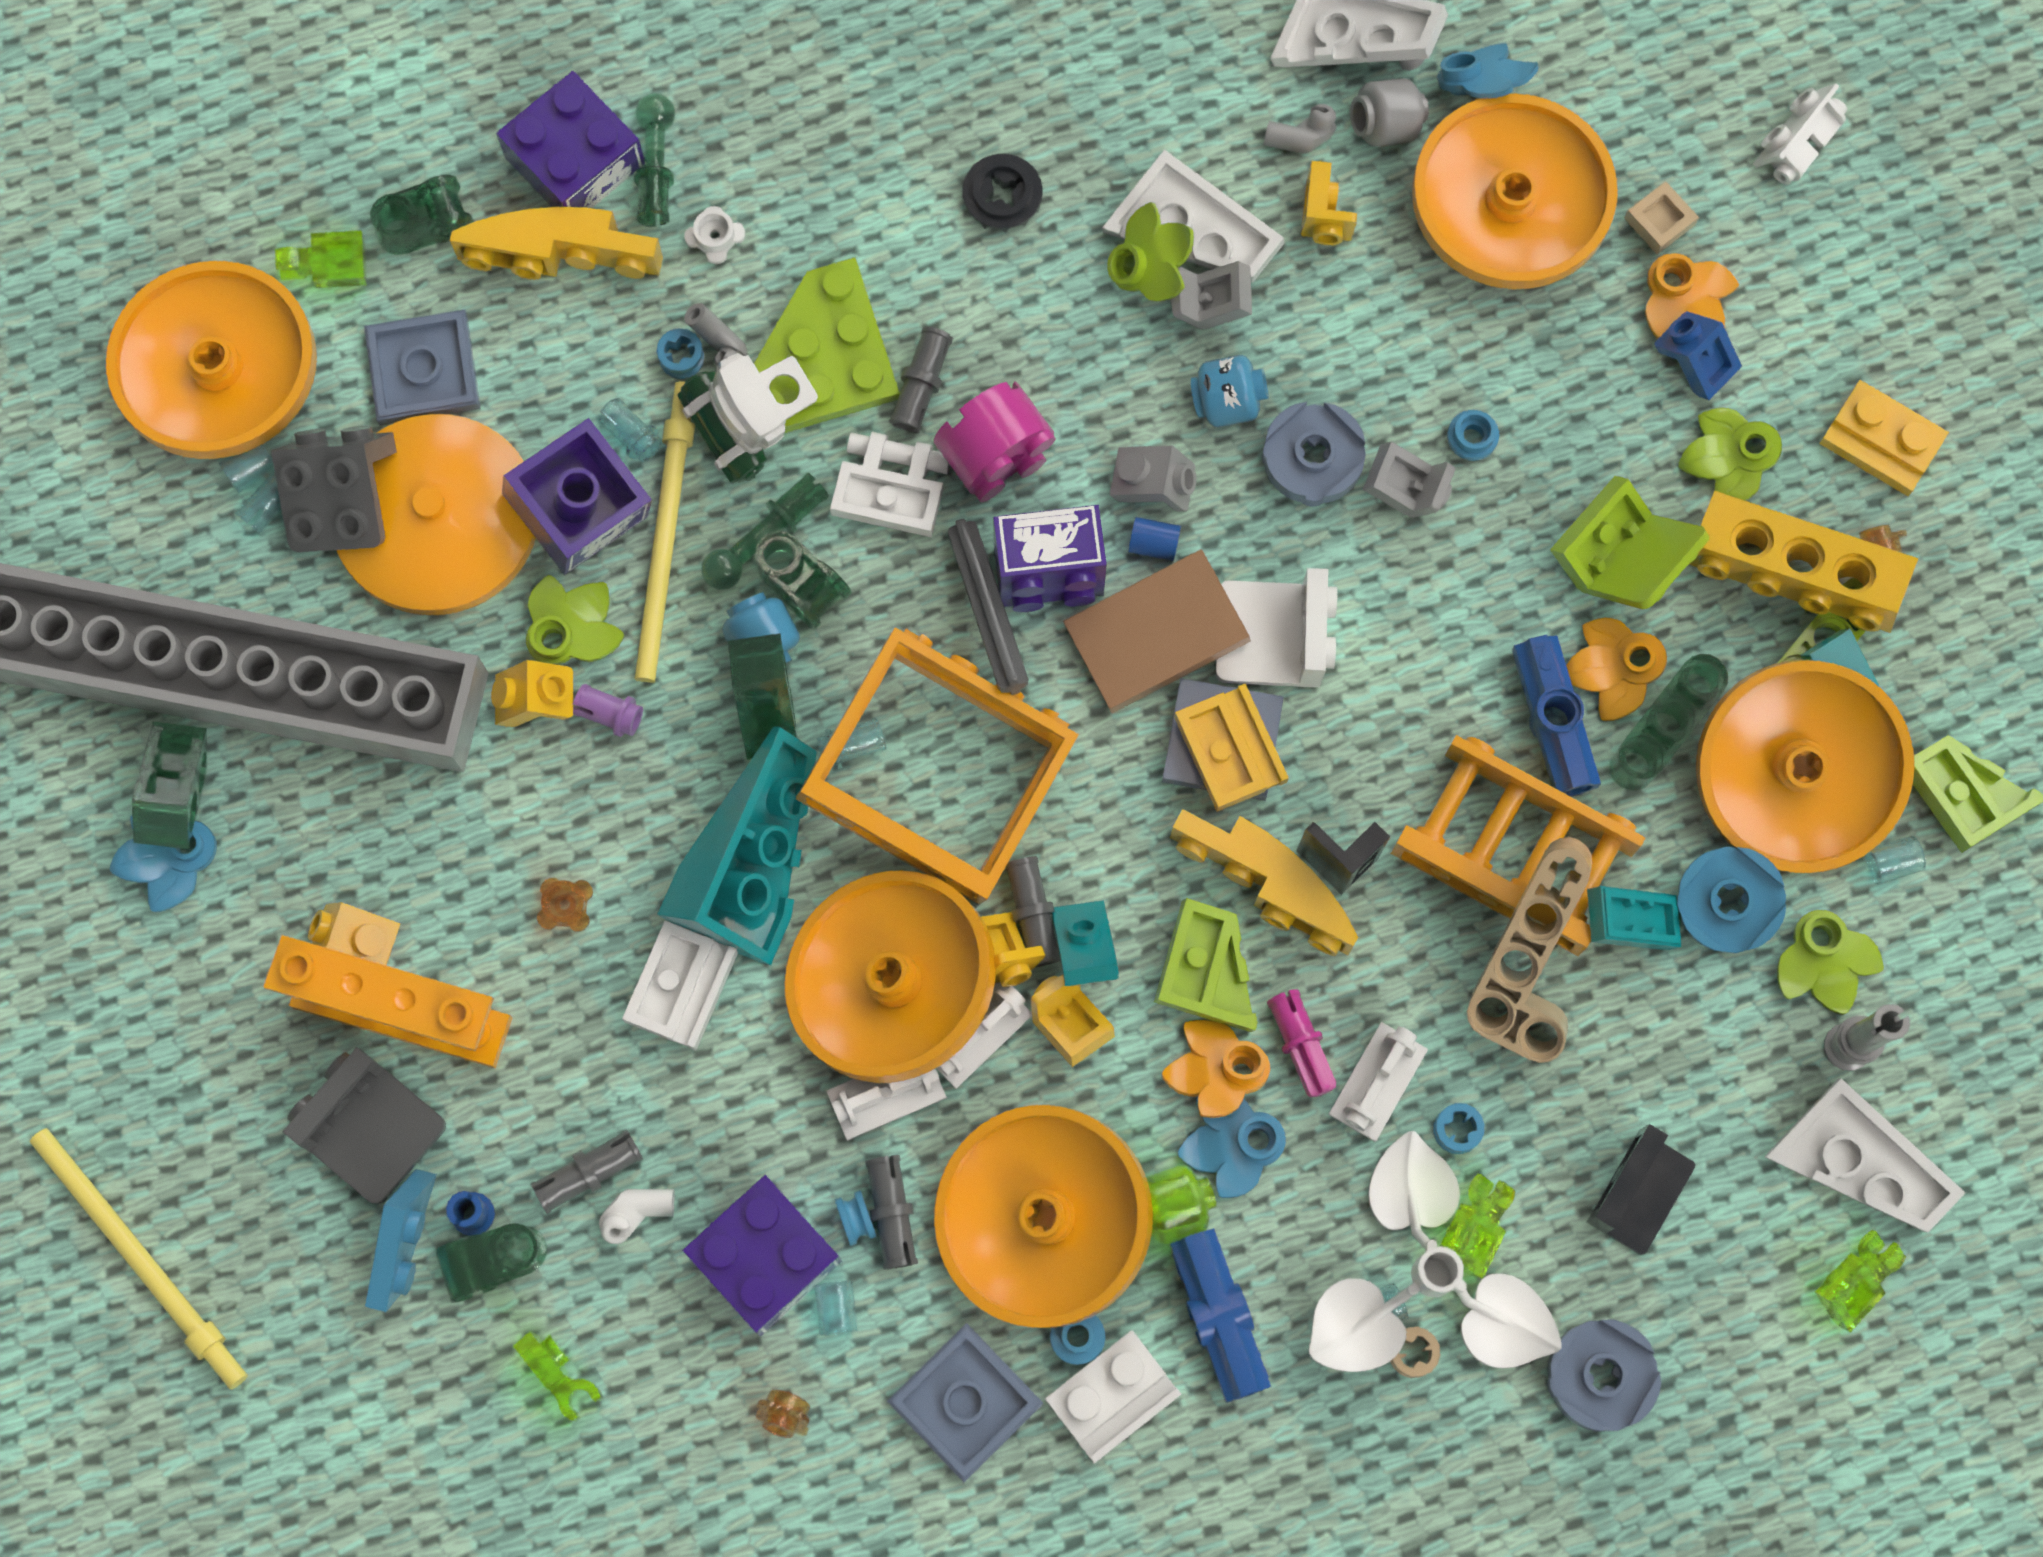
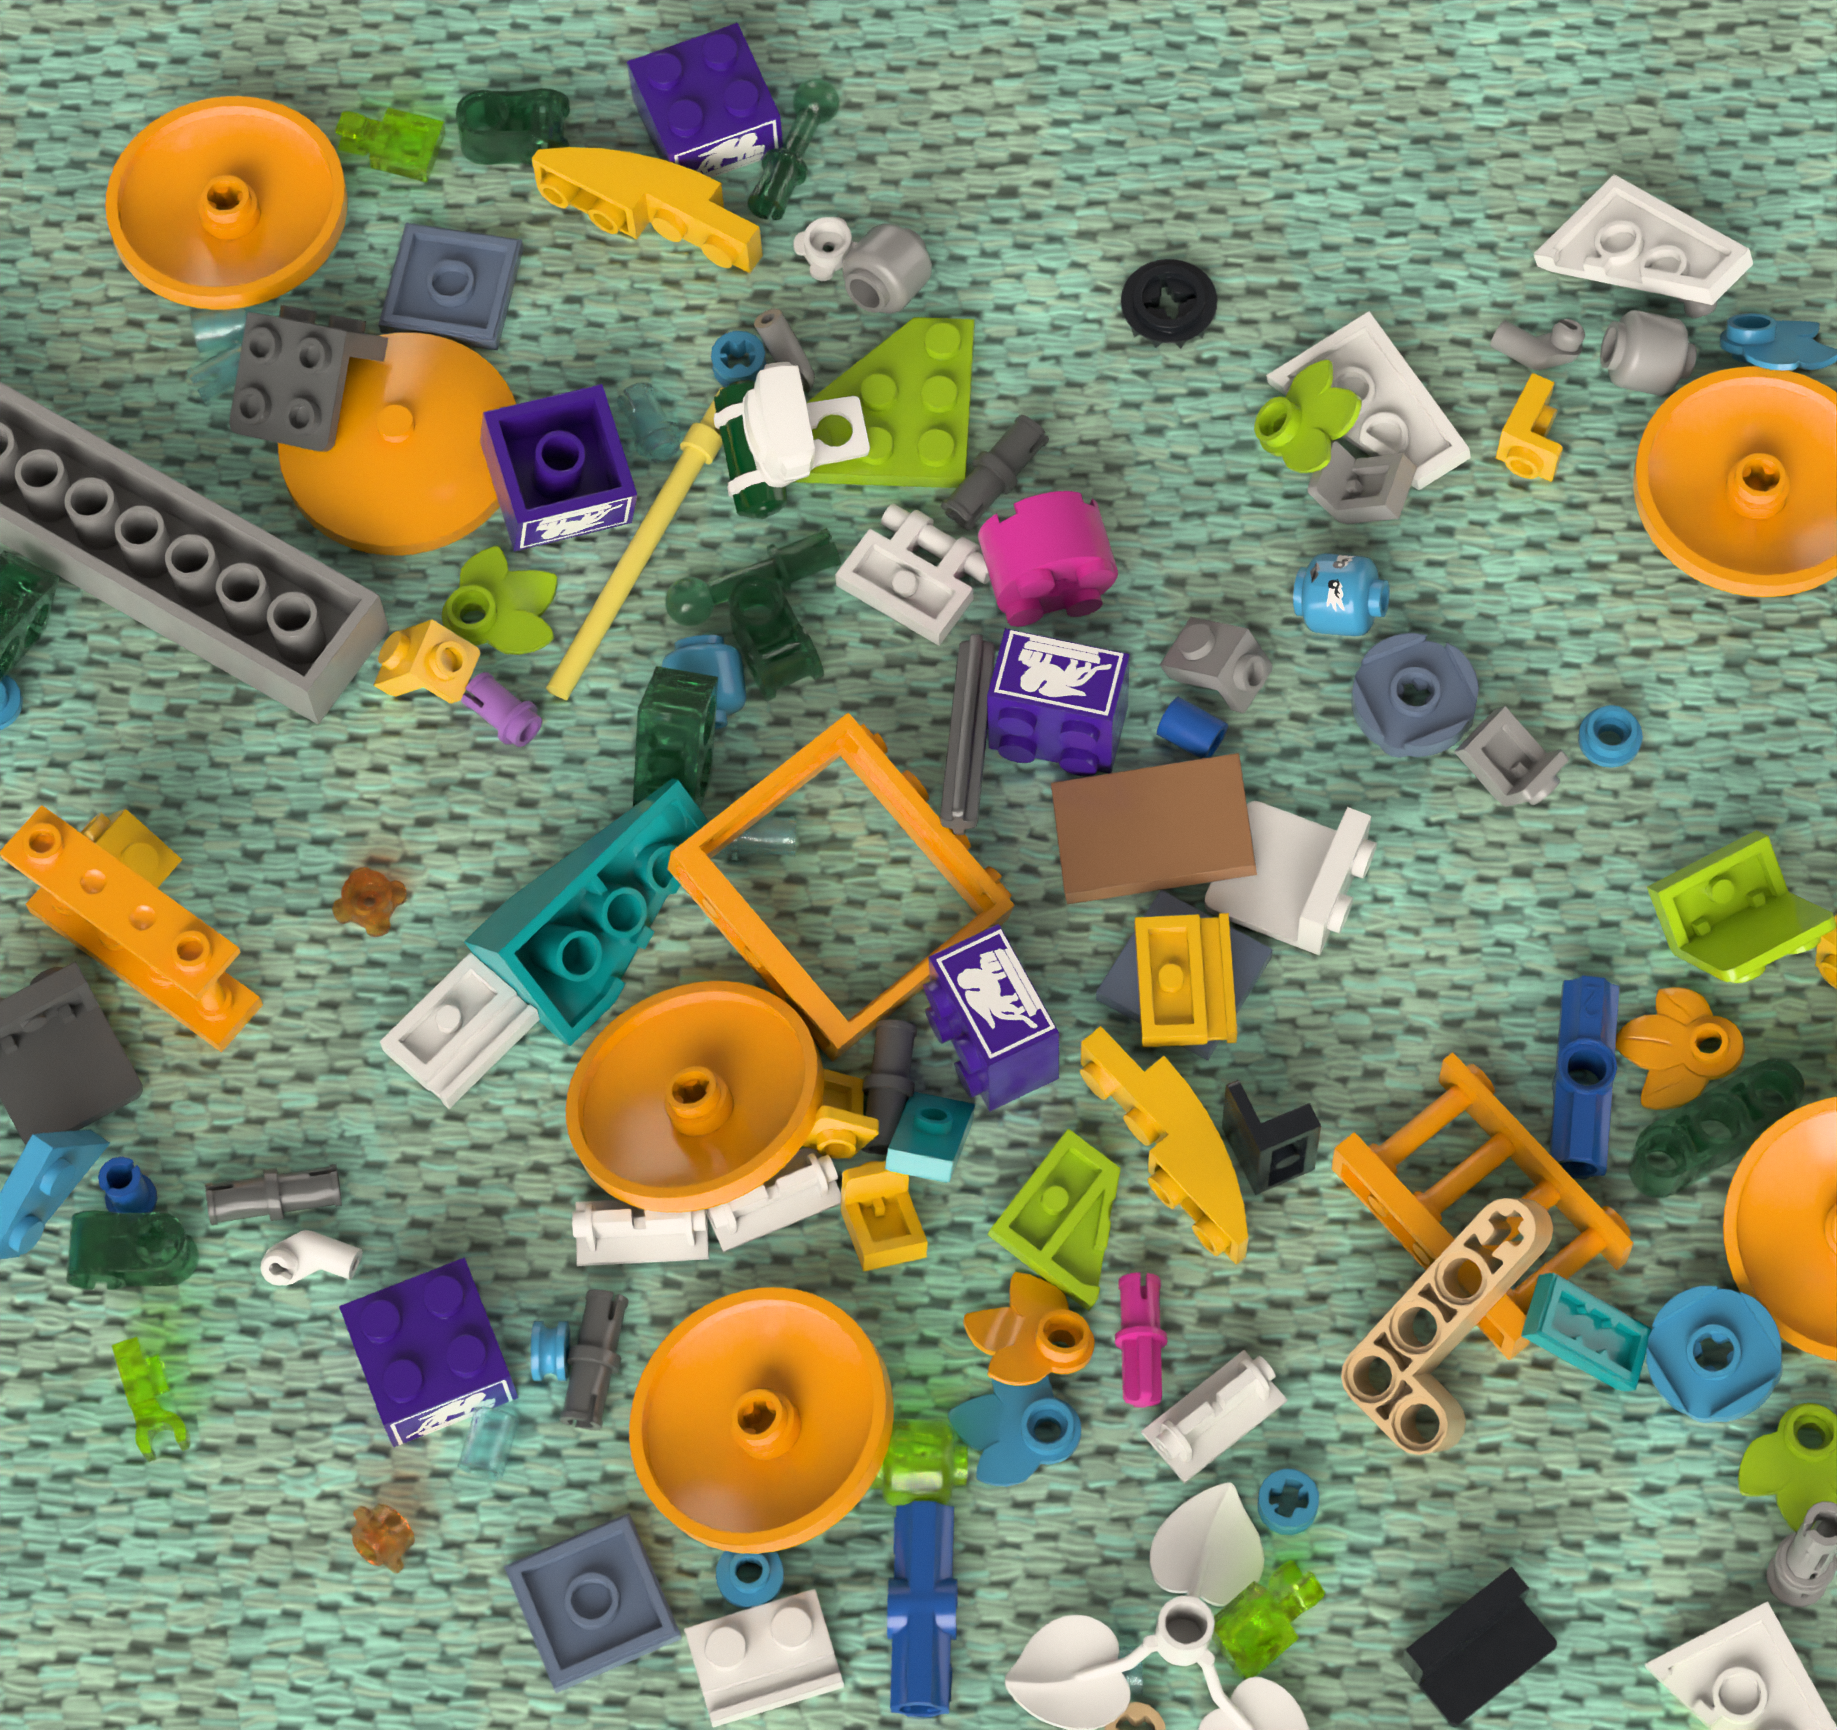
camera: 25 degrees right, 10 degrees down
(770, 238) = (886, 269): none -> light grey head
(1097, 833) = (992, 1018): none -> dark purple brick

